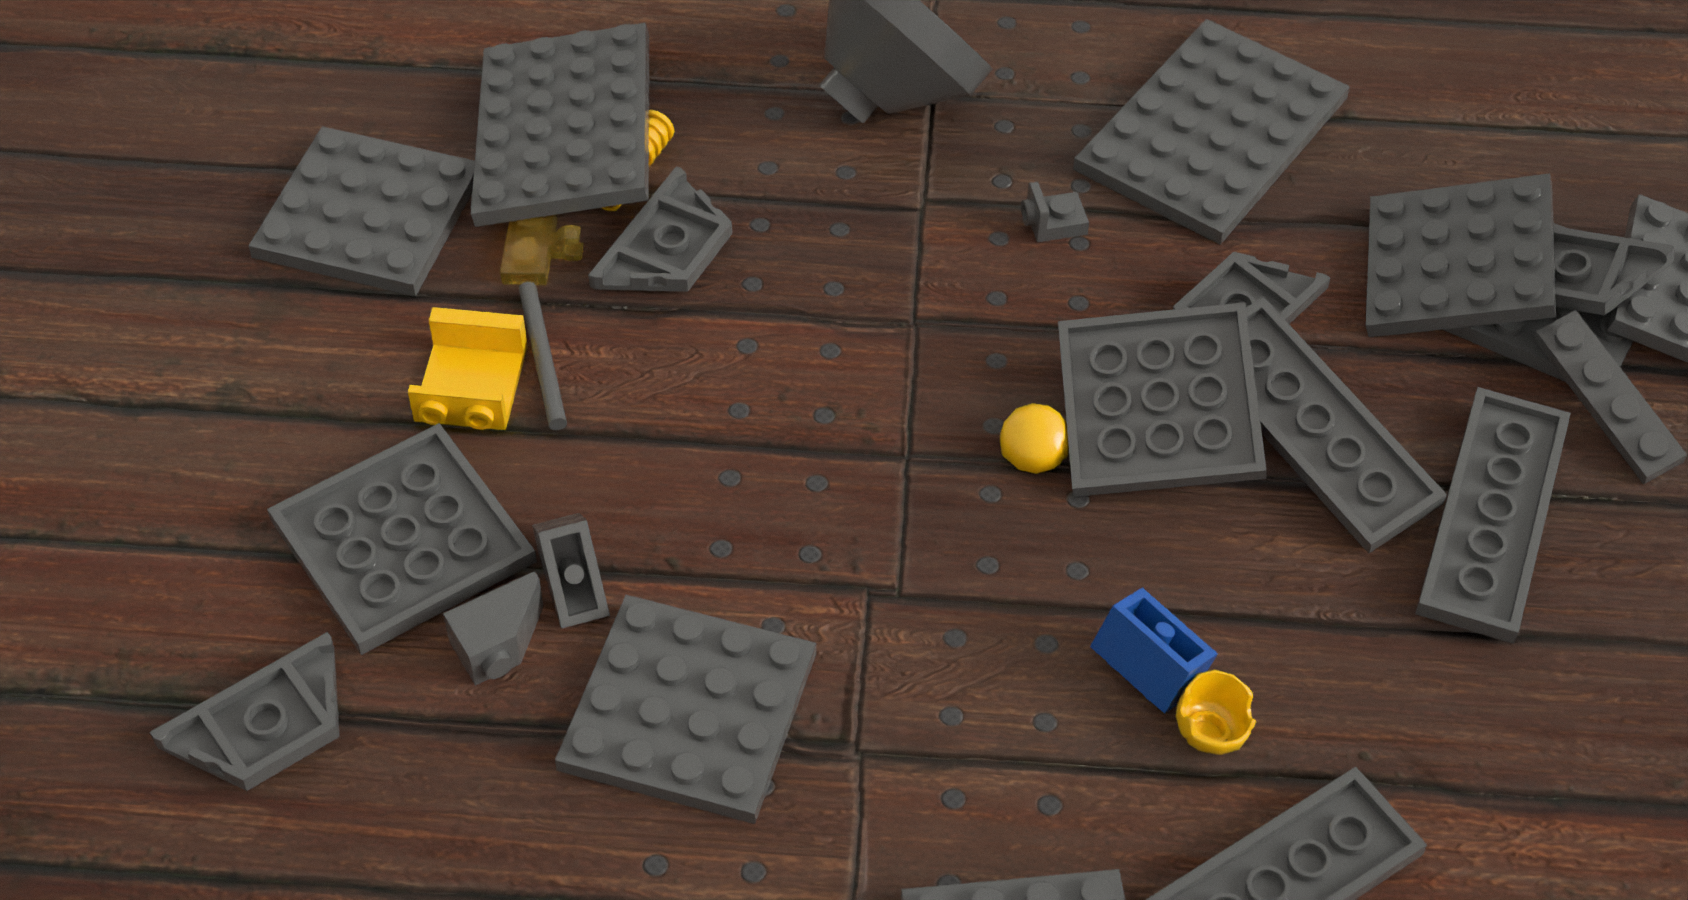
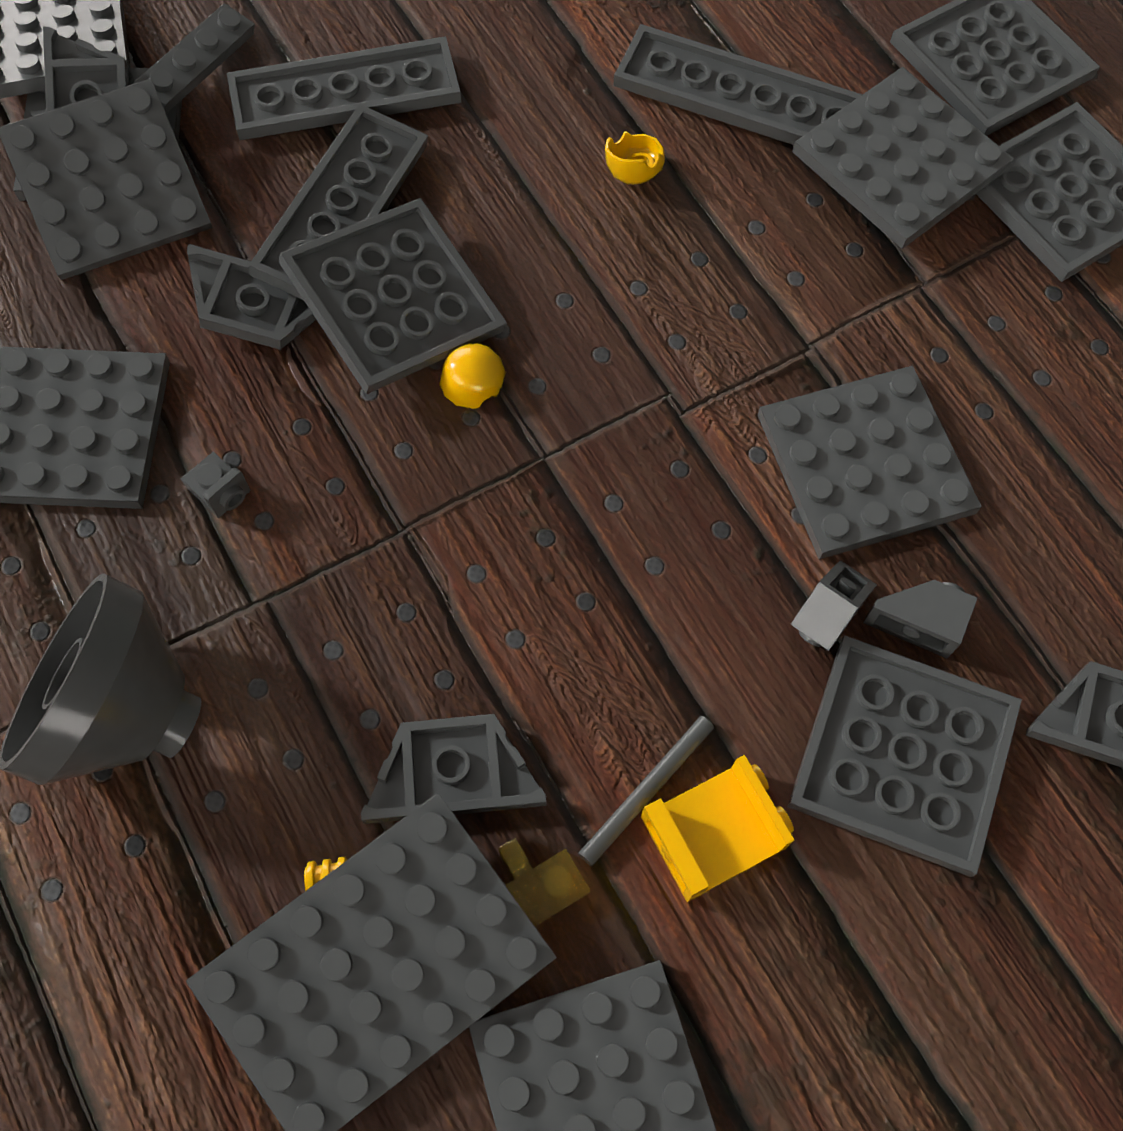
camera: 125 degrees left, 15 degrees up
(1152, 648) = (617, 202): blue brick -> none

